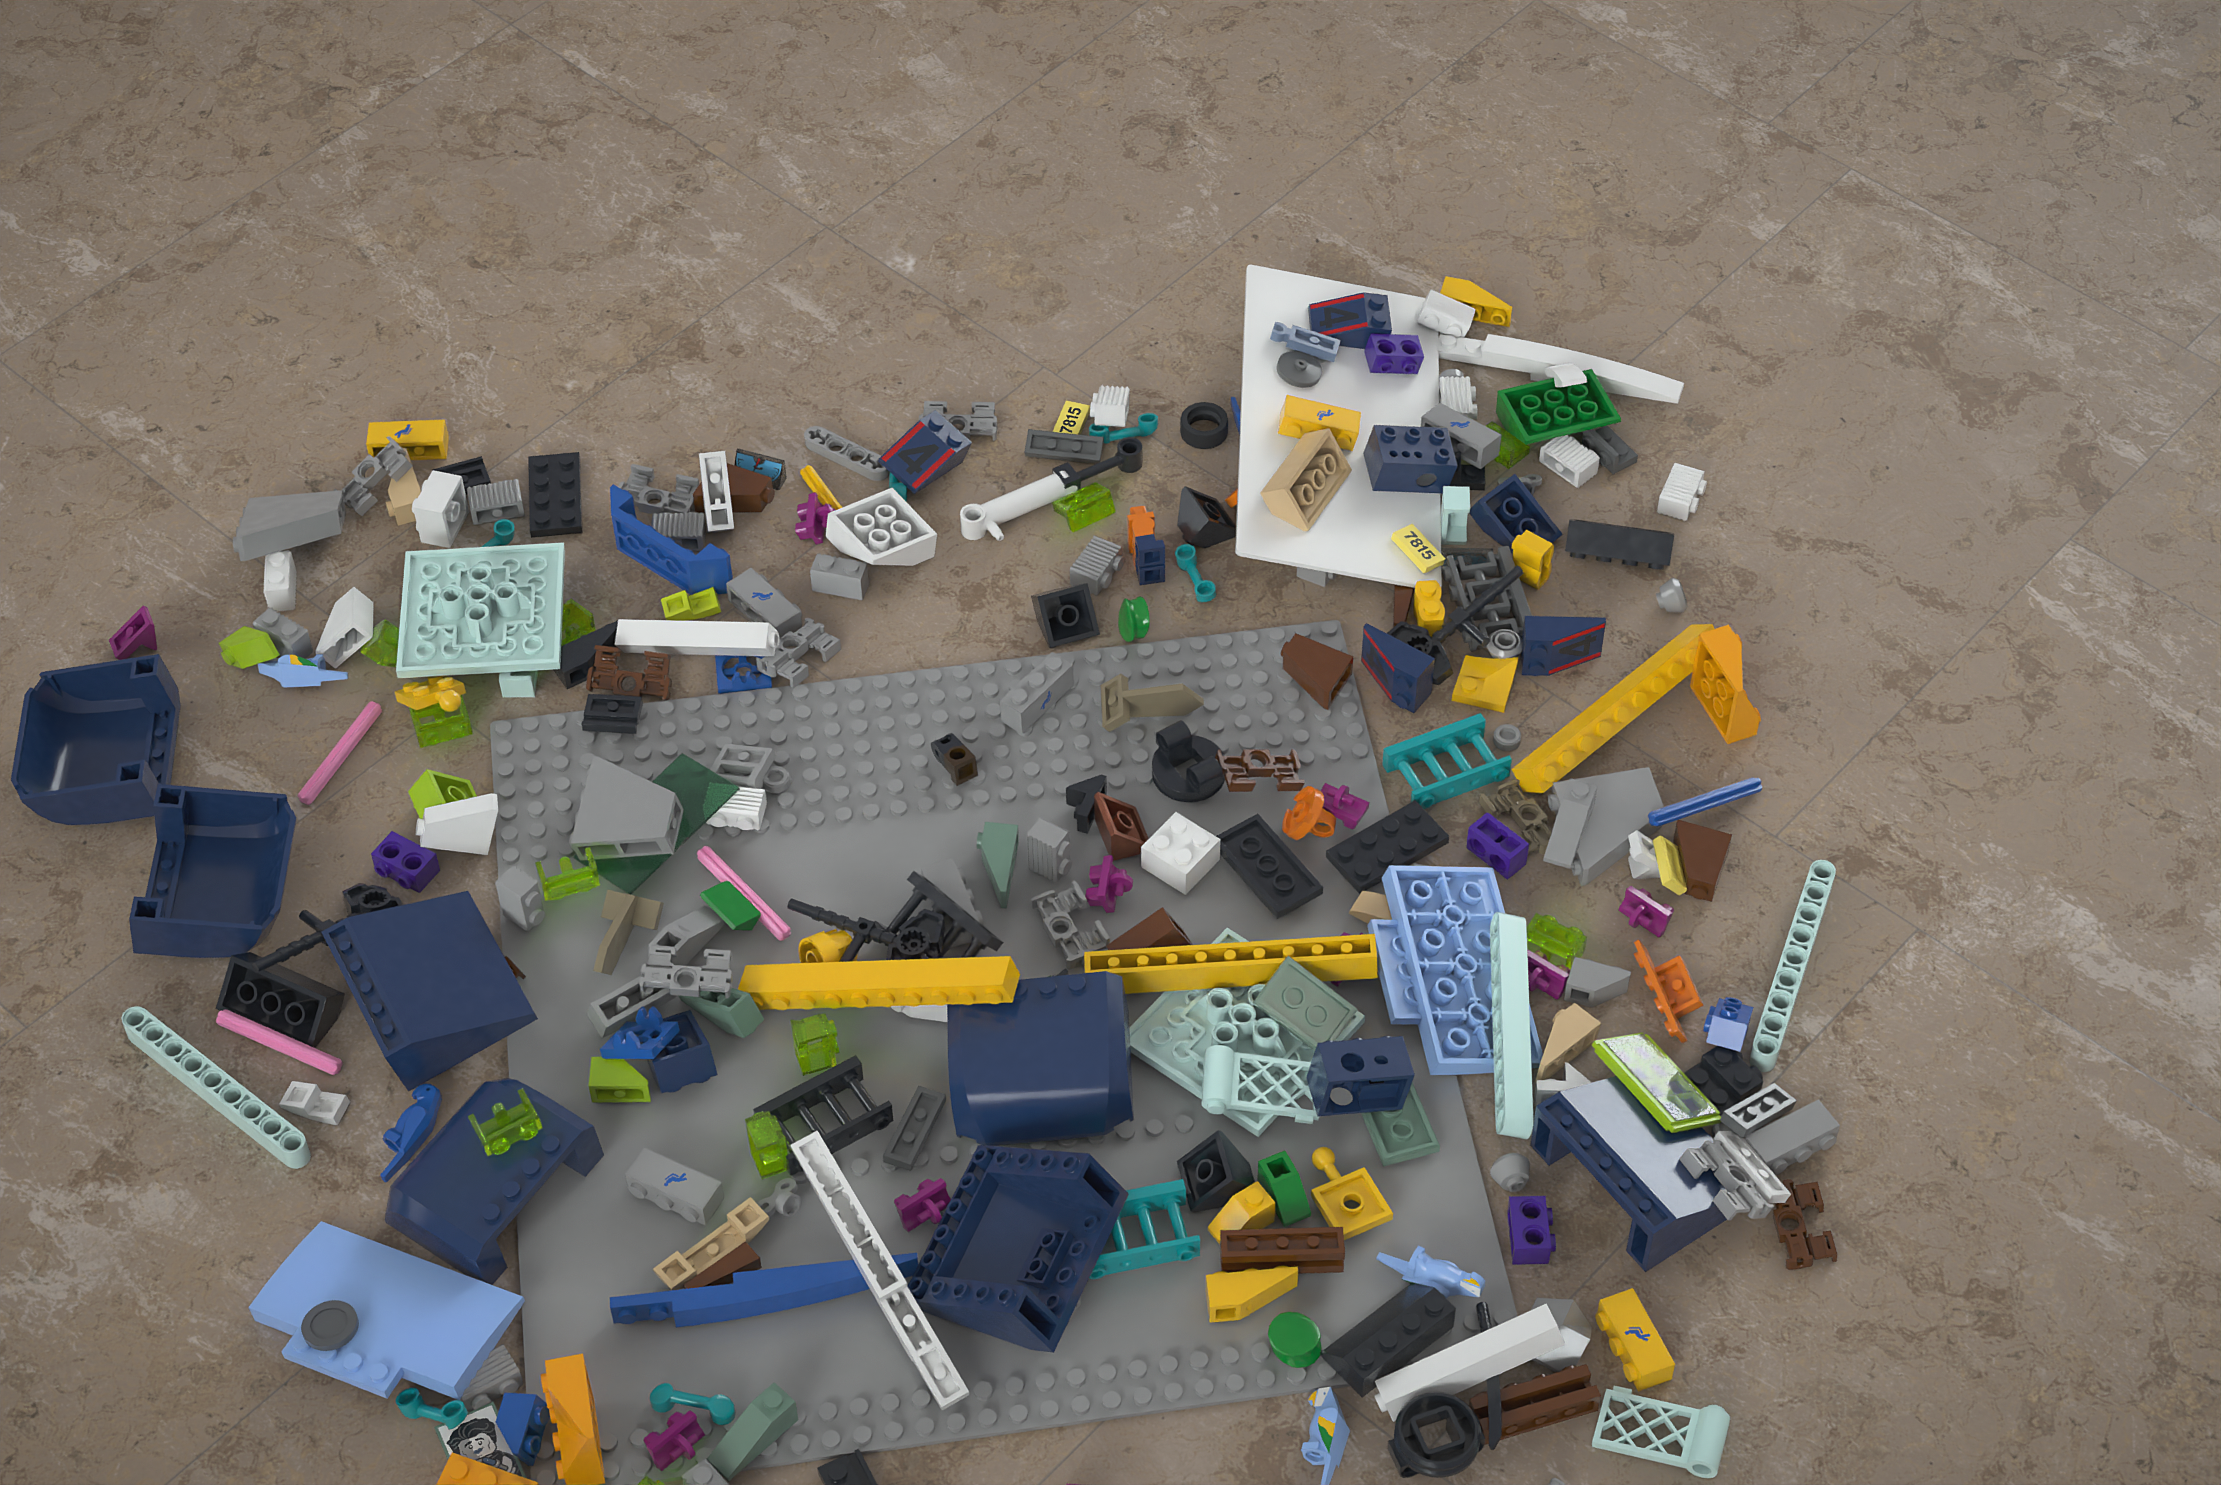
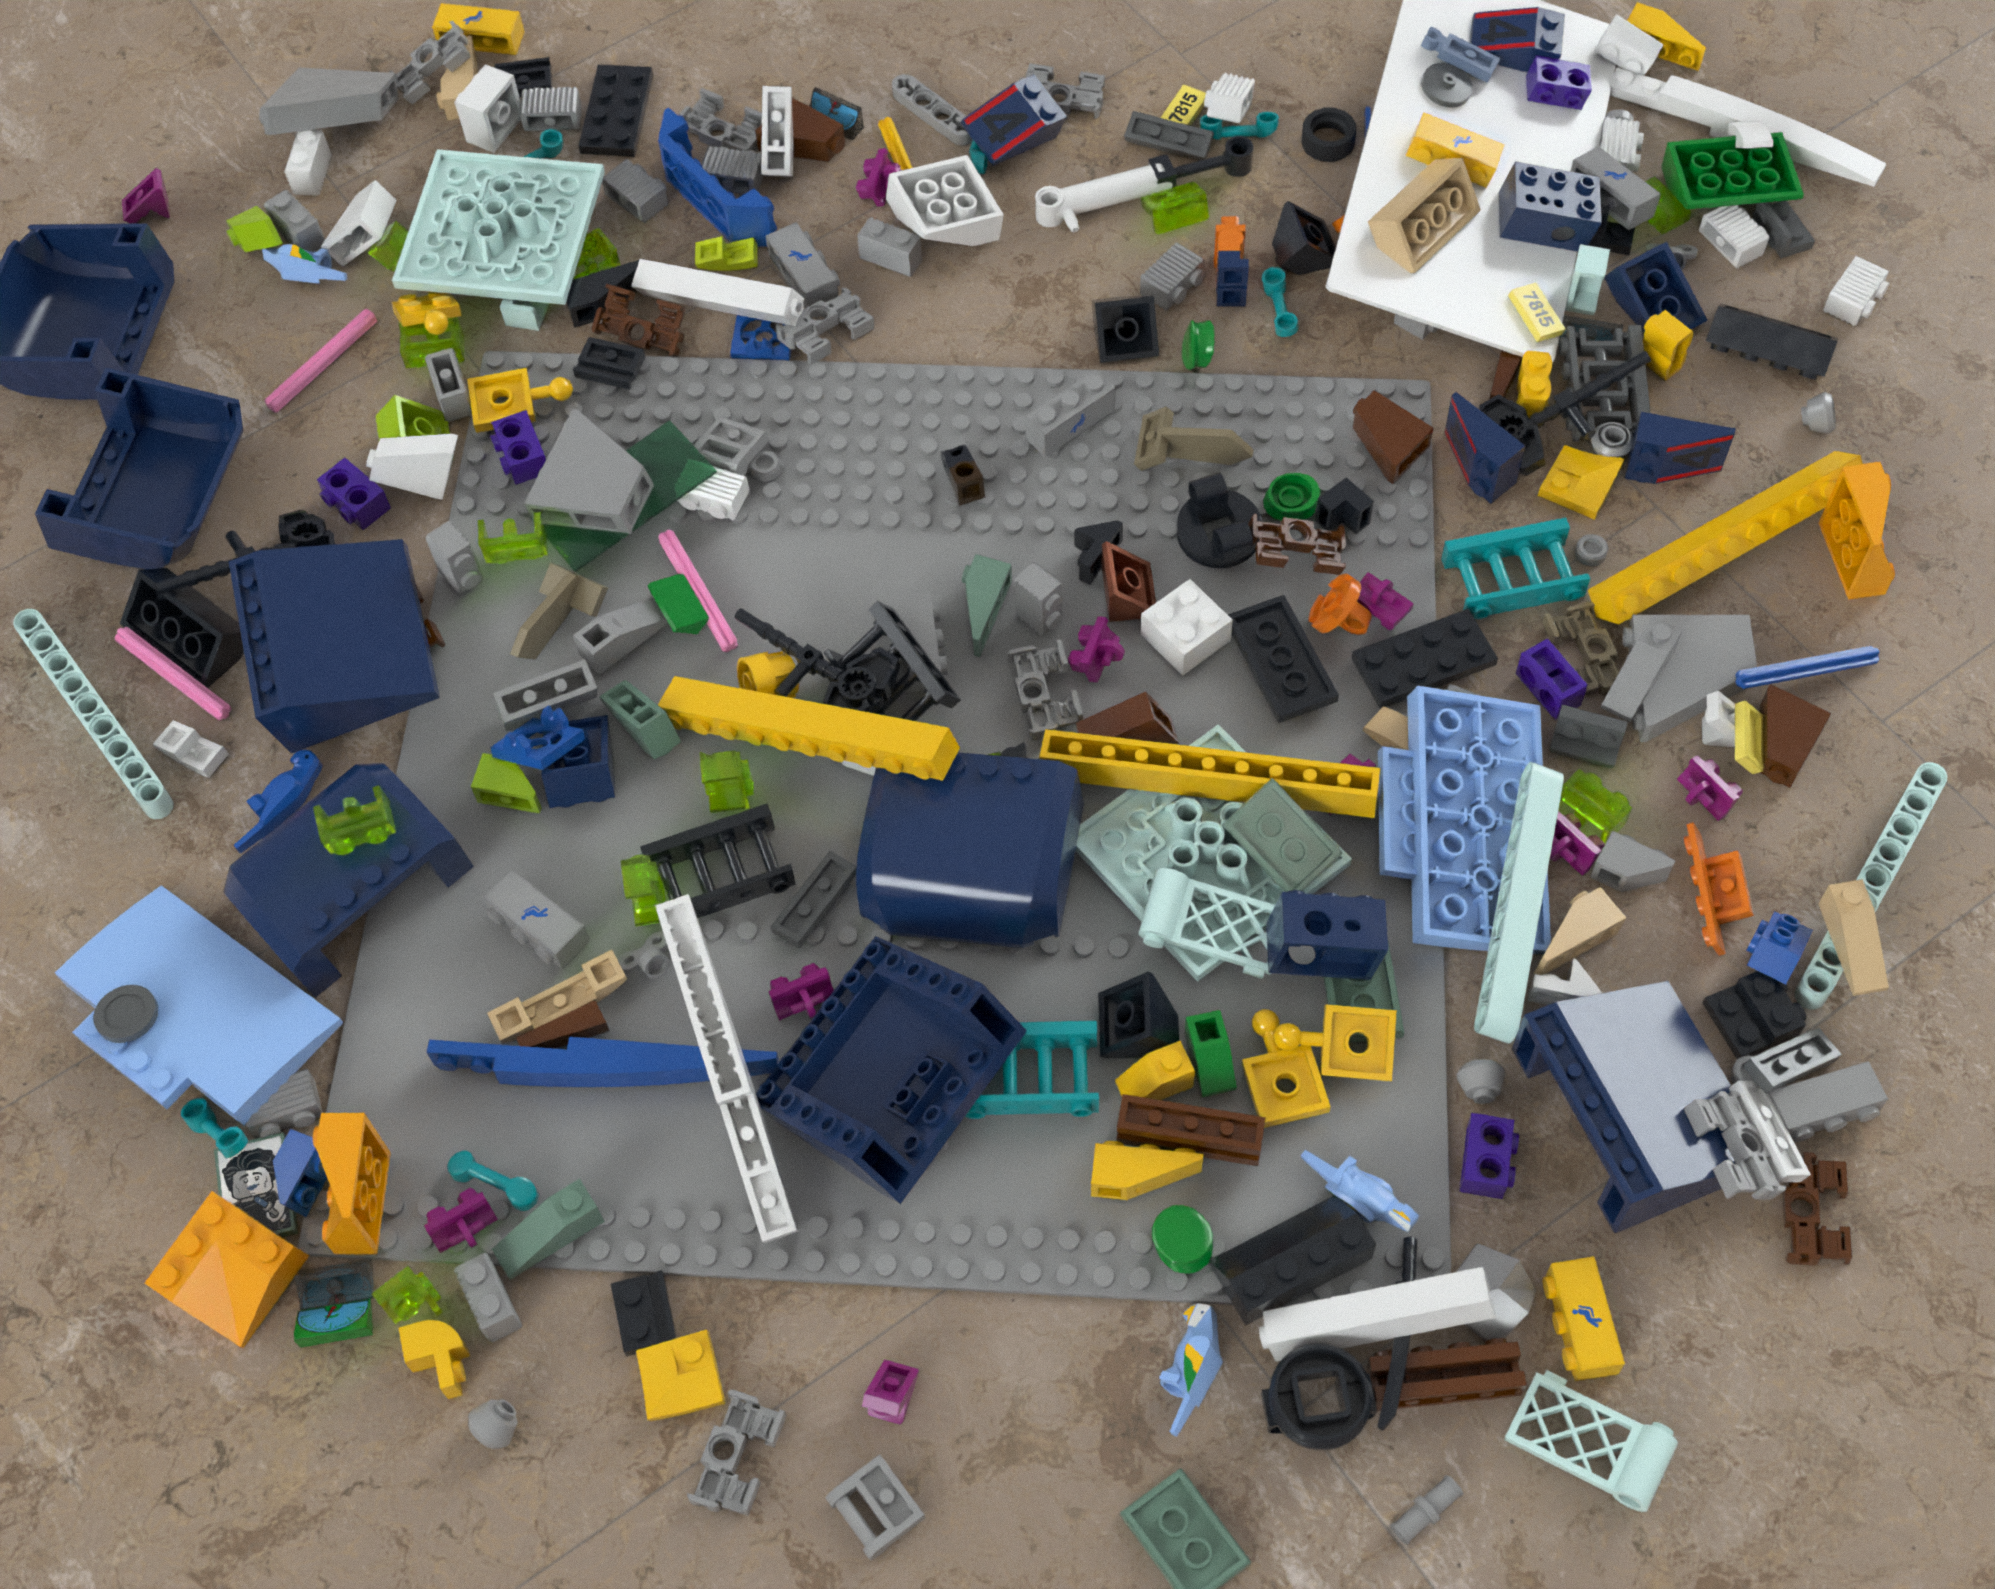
camera: 15 degrees right, 10 degrees up
(470, 754) = (449, 384): none -> light grey brick
(539, 762) = (515, 386): none -> yellow plate
(550, 797) = (519, 445): none -> dark purple brick
(594, 561) = (635, 190): none -> light grey brick
(712, 979) = (628, 689): light grey piece -> none
(1244, 731) = (1292, 496): none -> green piece
(1294, 732) = (1344, 505): none -> black piece
(1388, 1172) = (1336, 1055): none -> yellow plate
(1537, 886) = (1588, 736): none -> dark grey bracket
(1657, 1082) = (1677, 1003): clear piece -> none
(1787, 1002) = (1855, 935): none -> tan slope

